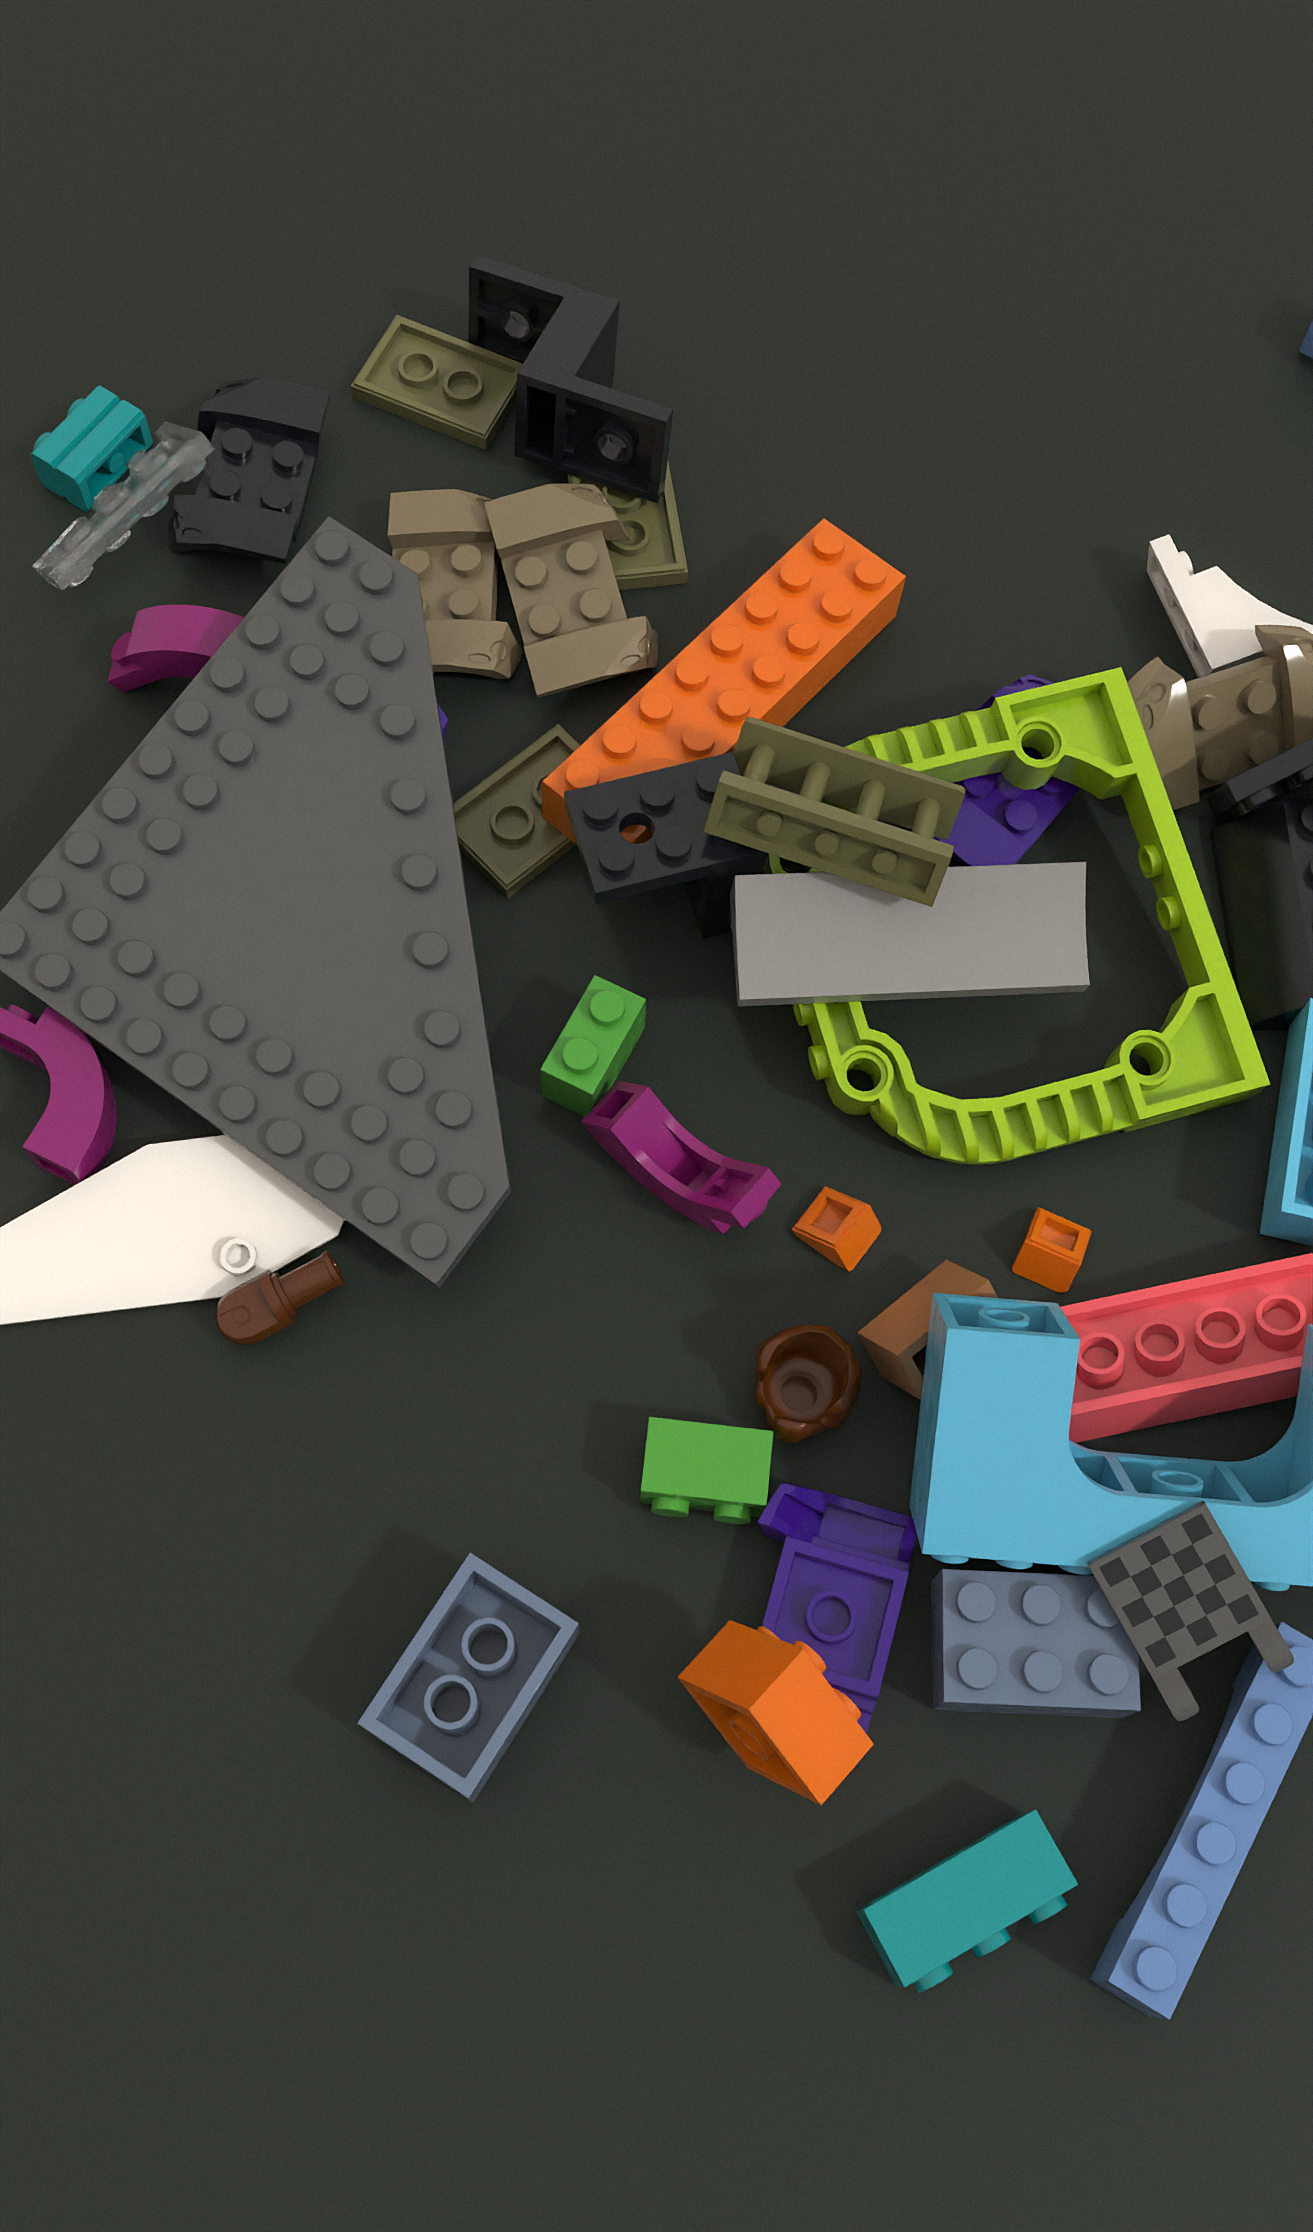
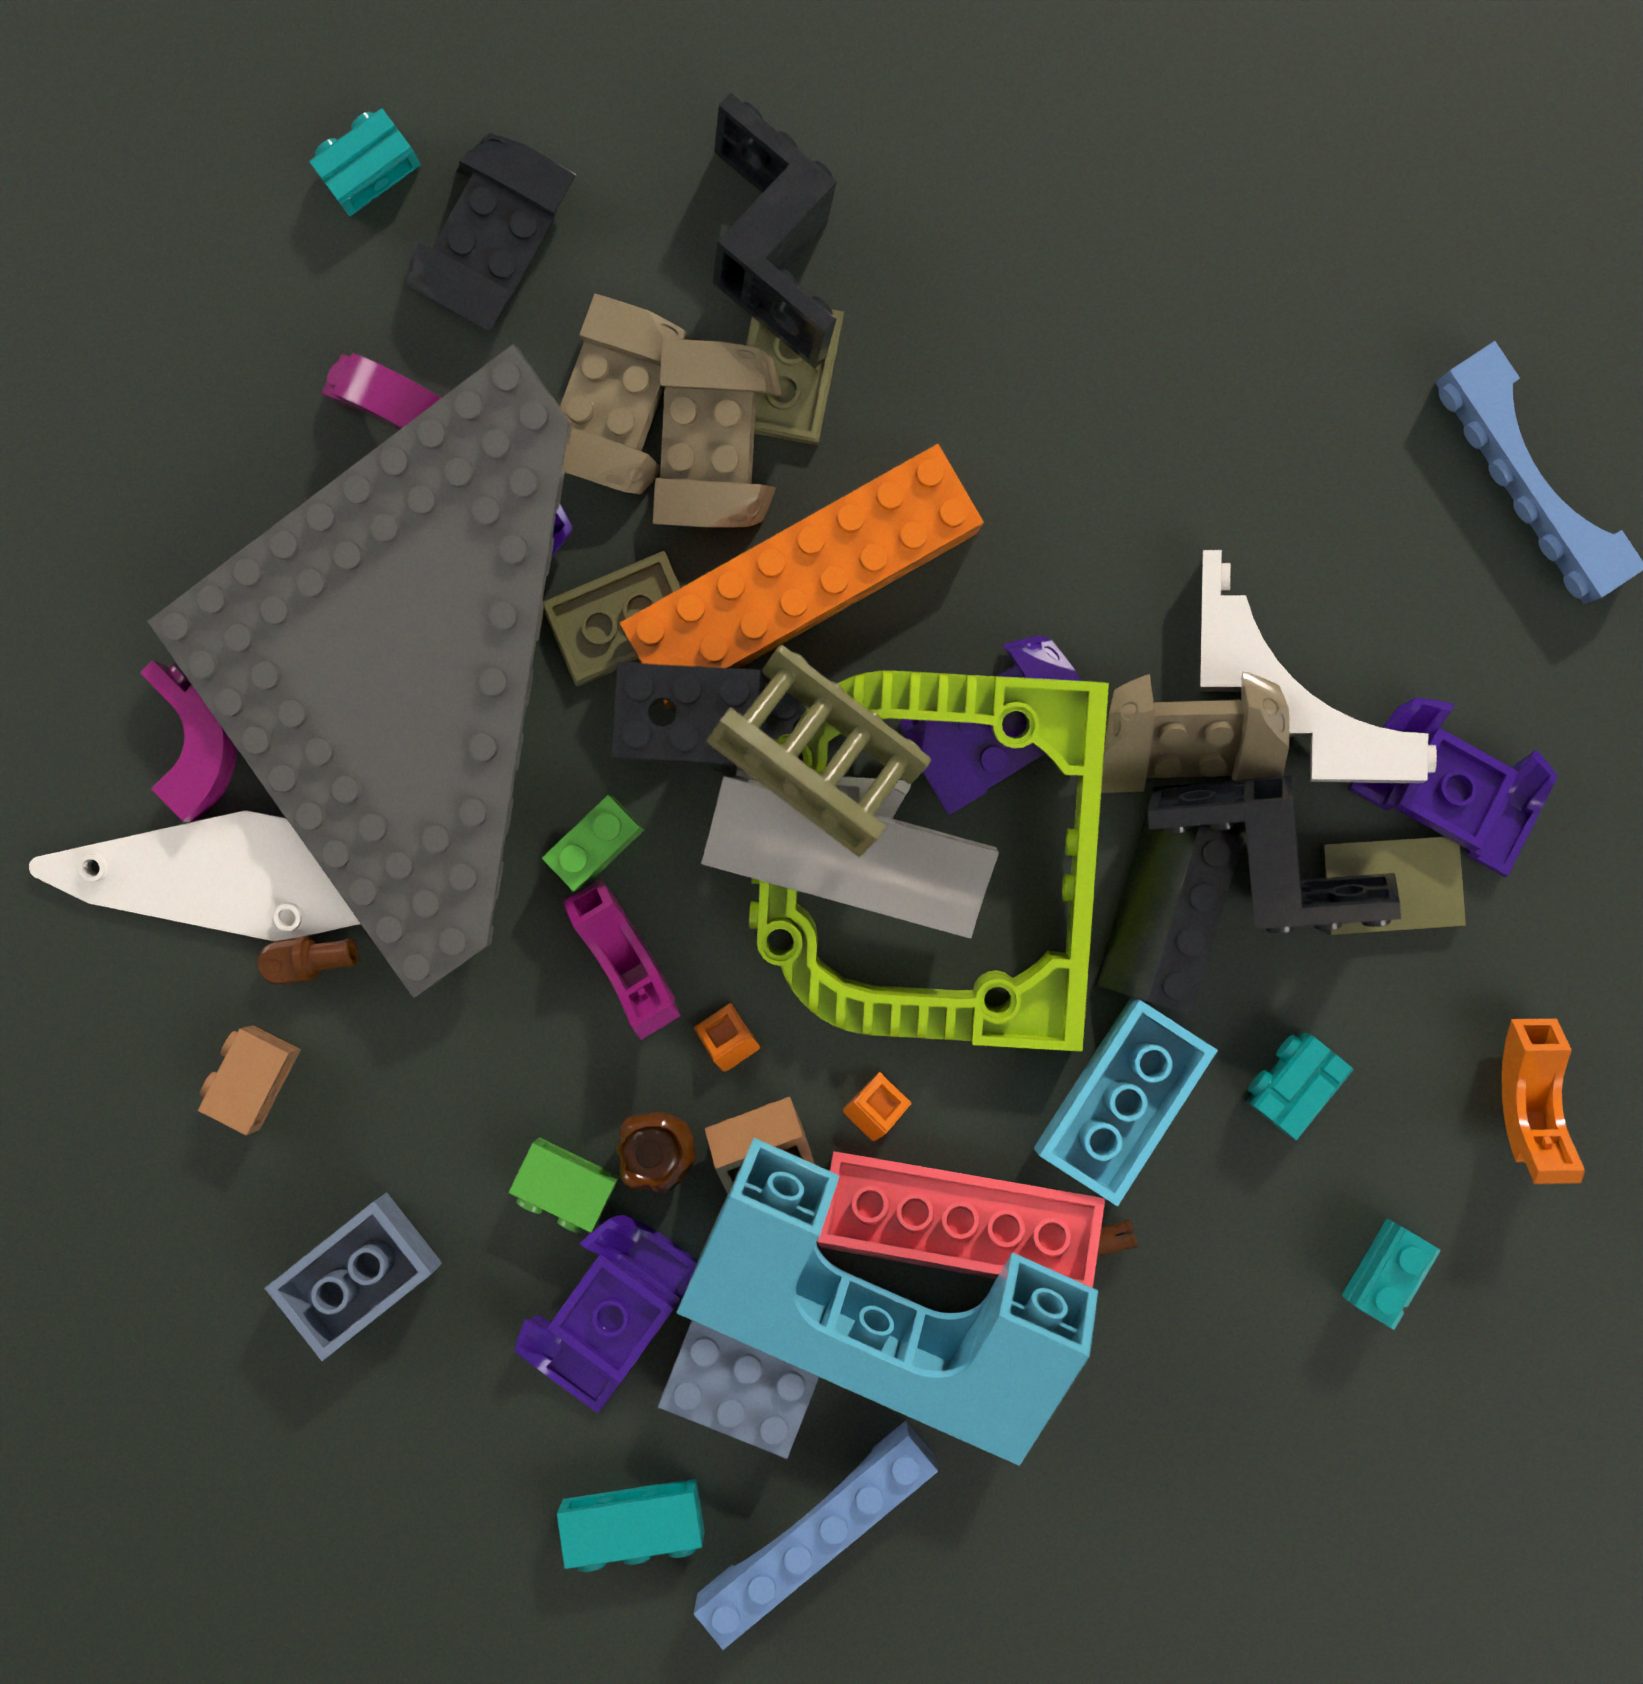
camera: 25 degrees right, 20 degrees up
(121, 505) = (377, 229): clear wing -> none
(245, 1472) = (247, 1079): none -> medium nougat brick
(439, 382) = (679, 180): olive tile -> none
(777, 1709) = (538, 1381): orange brick -> none
(1182, 1597) = (840, 1404): dark grey flag -> none

